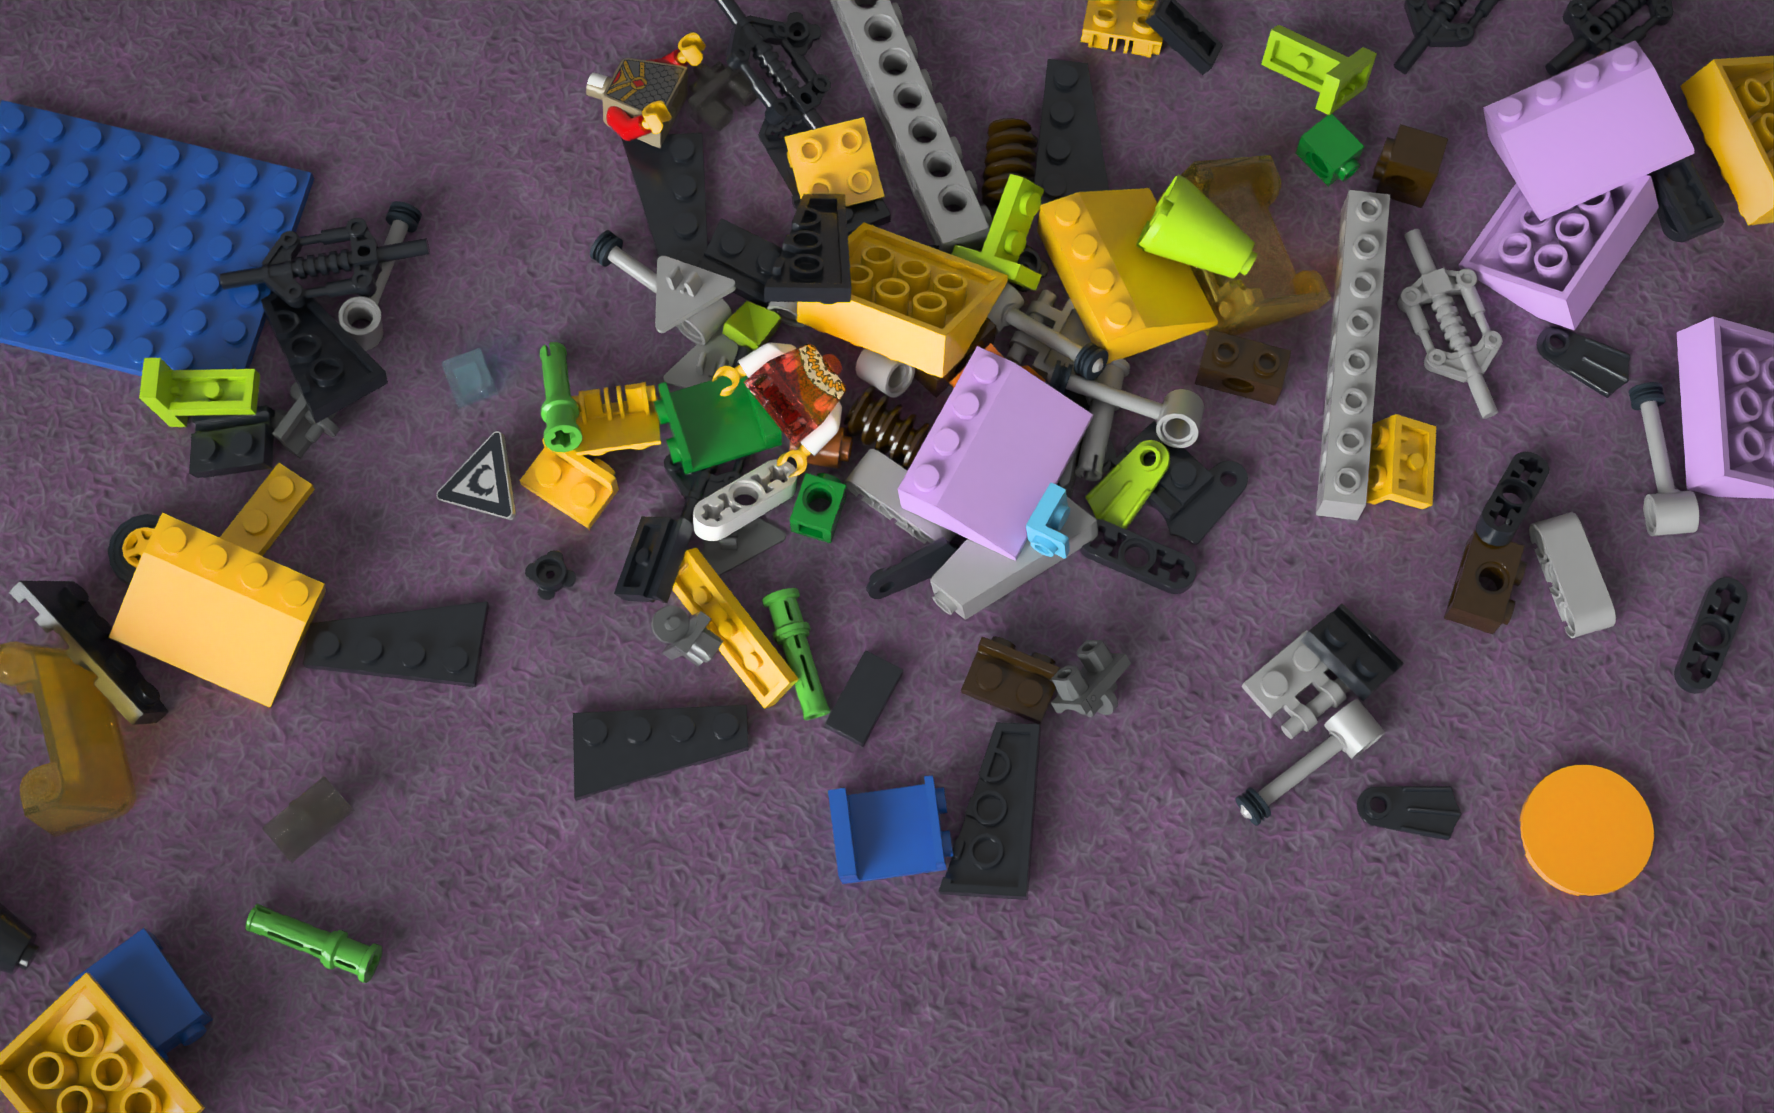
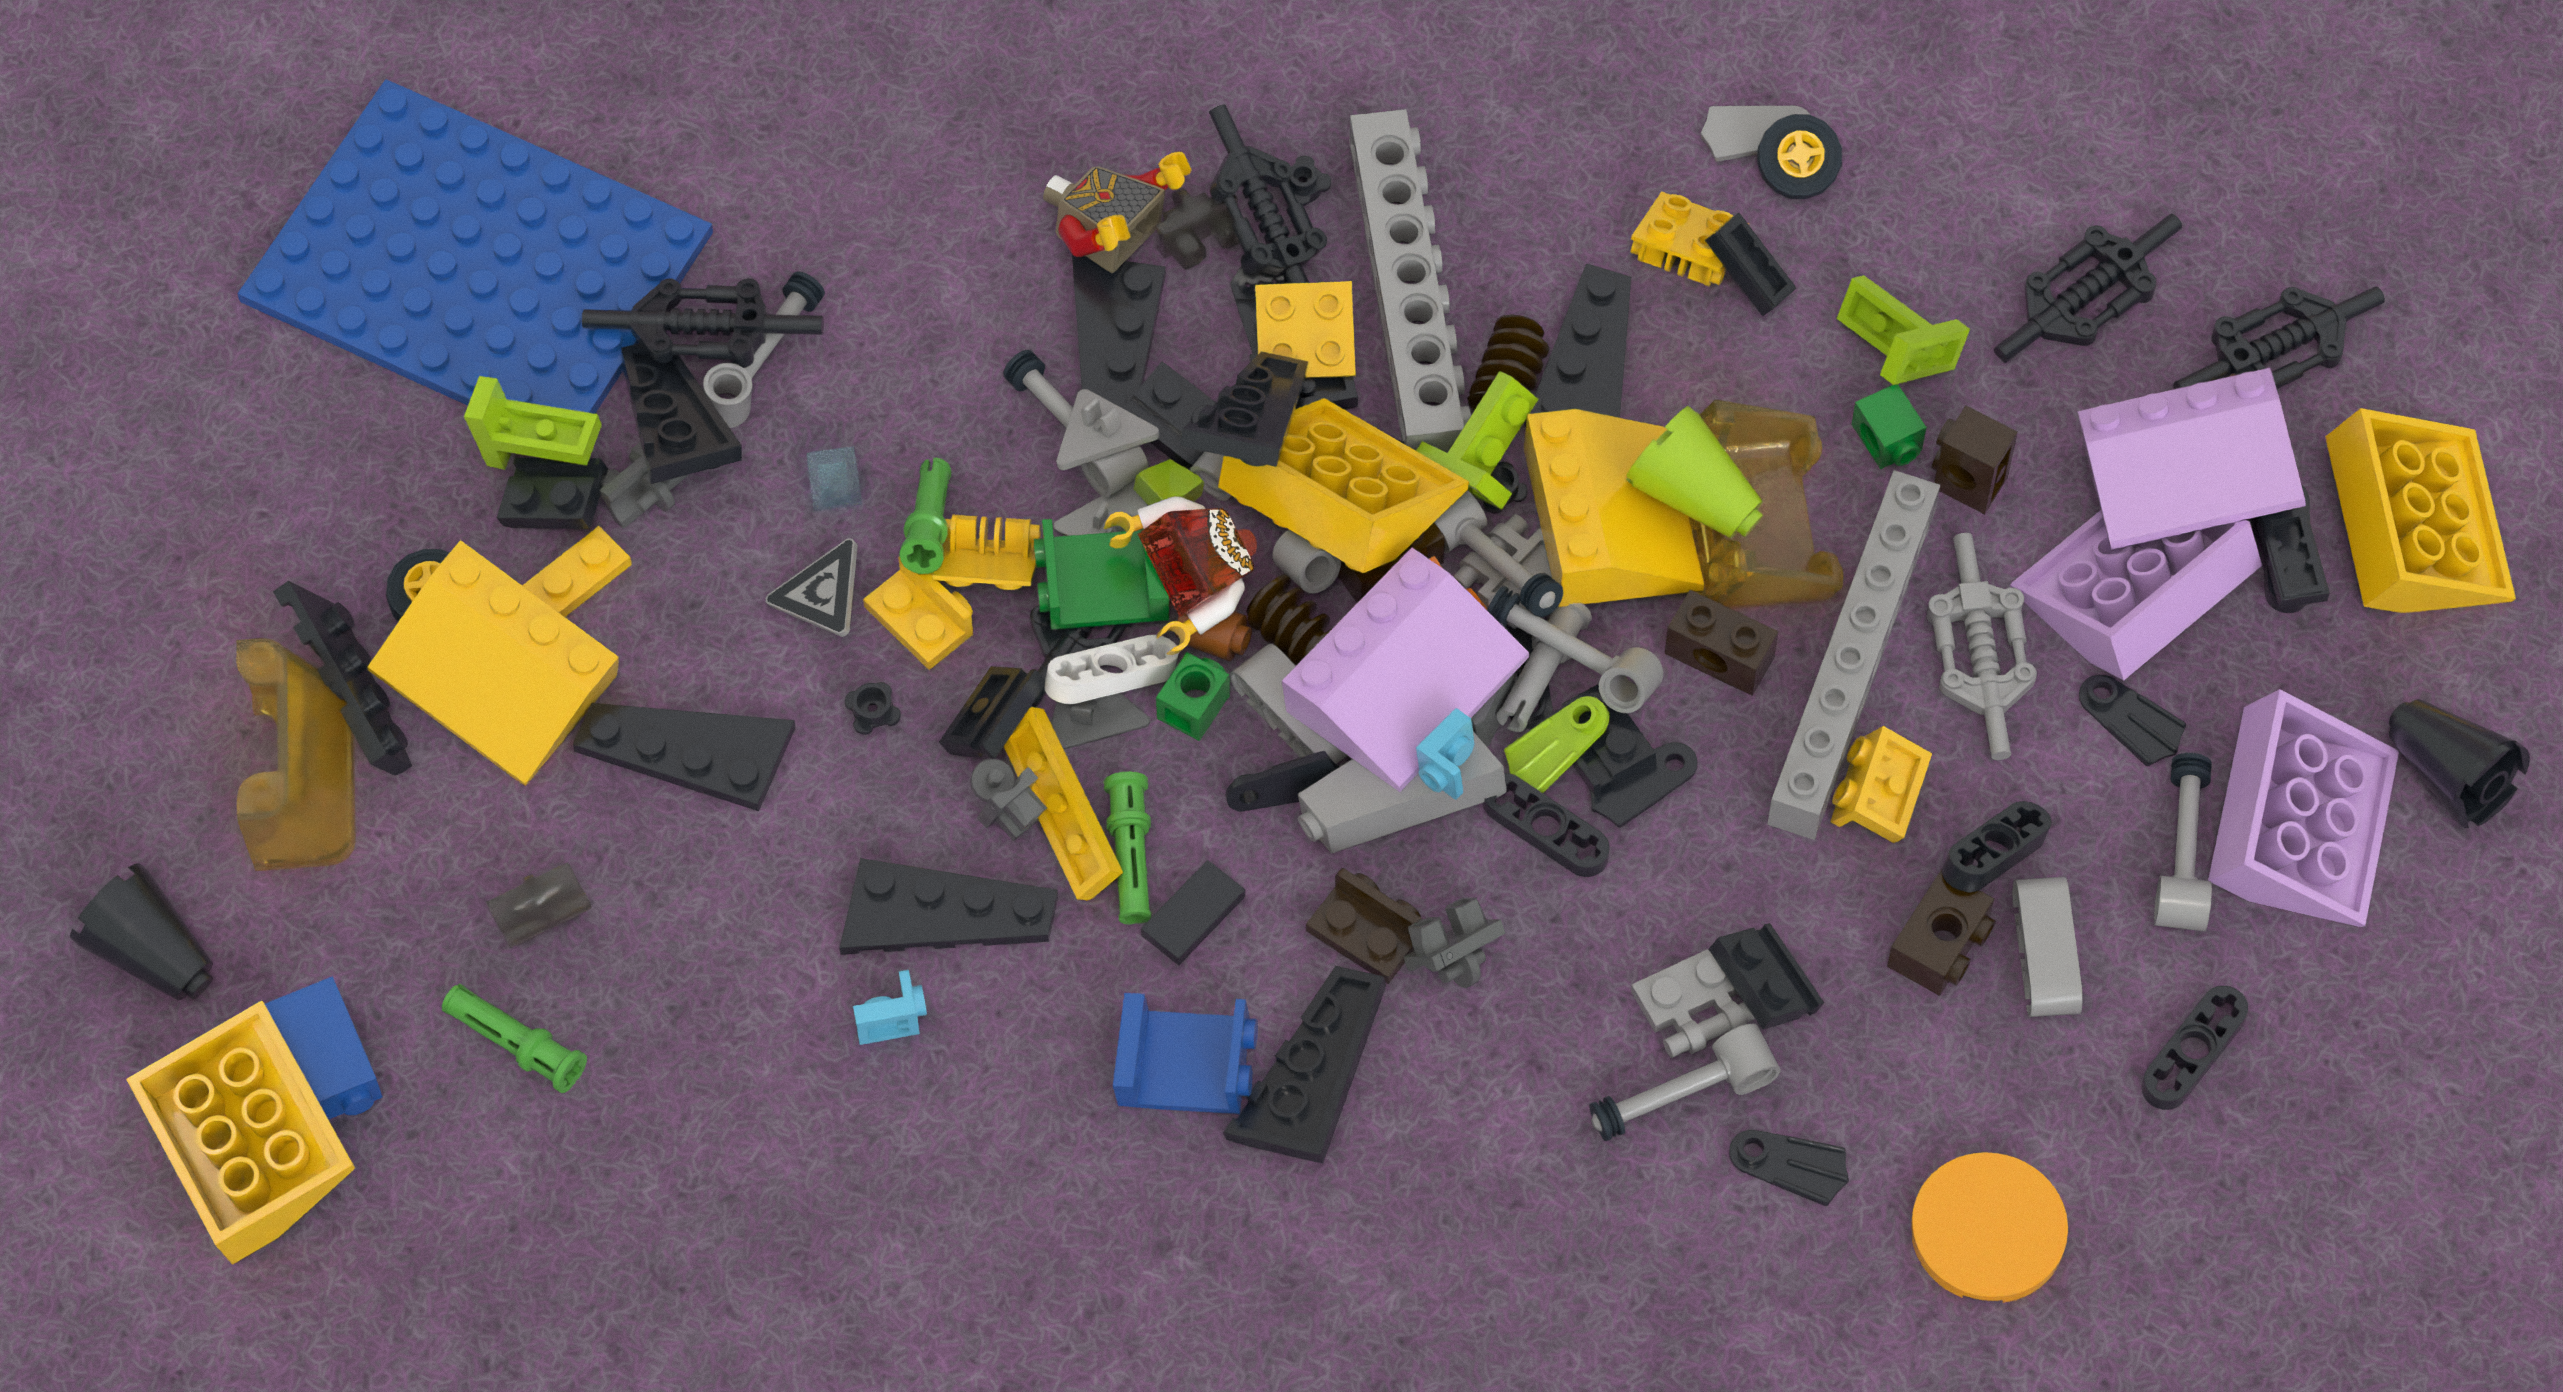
camera: 15 degrees right, 10 degrees down
(629, 854) = (891, 1018): none -> medium azure bracket

